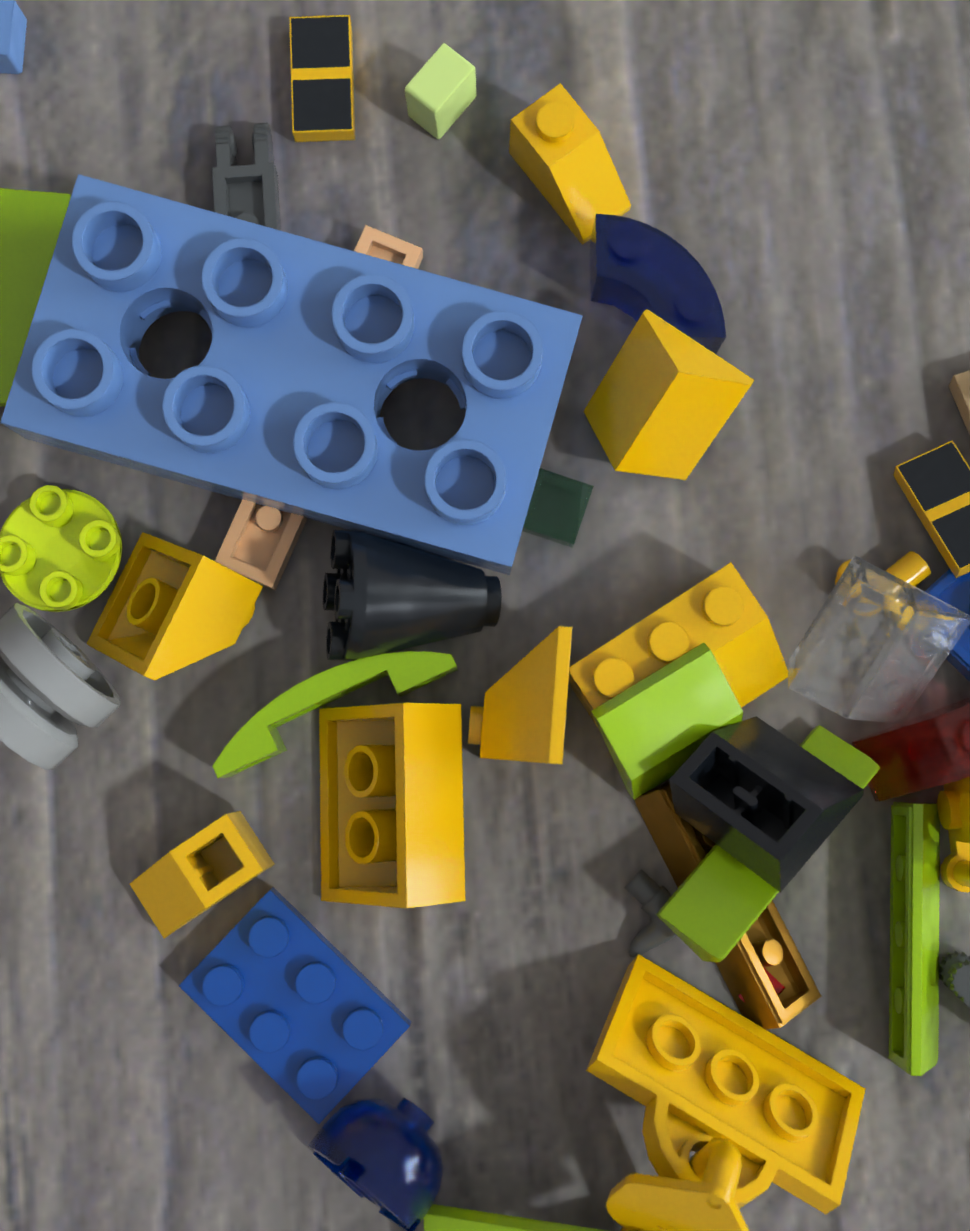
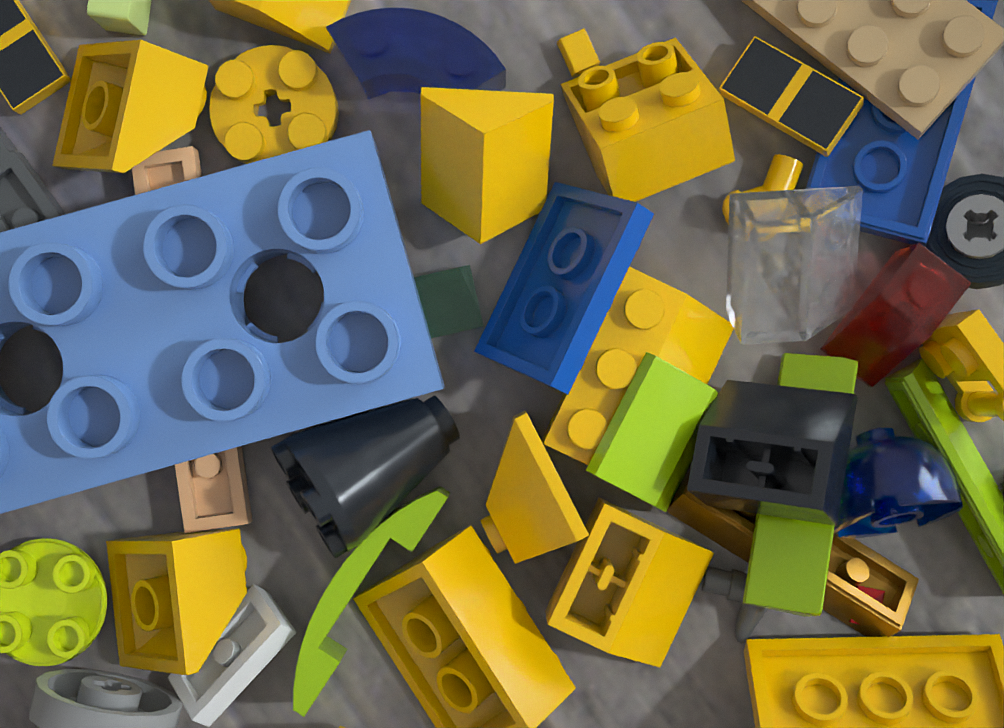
camera: 30 degrees left, 5 degrees up
(189, 694) = (242, 651): none -> white plate
(391, 181) = (127, 105): none -> yellow slope
(514, 226) = (244, 87): none -> yellow plate
(566, 839) = (627, 585): none -> yellow slope
(665, 547) = (564, 284): none -> blue plate
(792, 367) = (578, 52): none -> yellow piece
(820, 458) = (650, 121): none -> yellow slope
(849, 893) = (894, 483): none -> clear blue cylinder

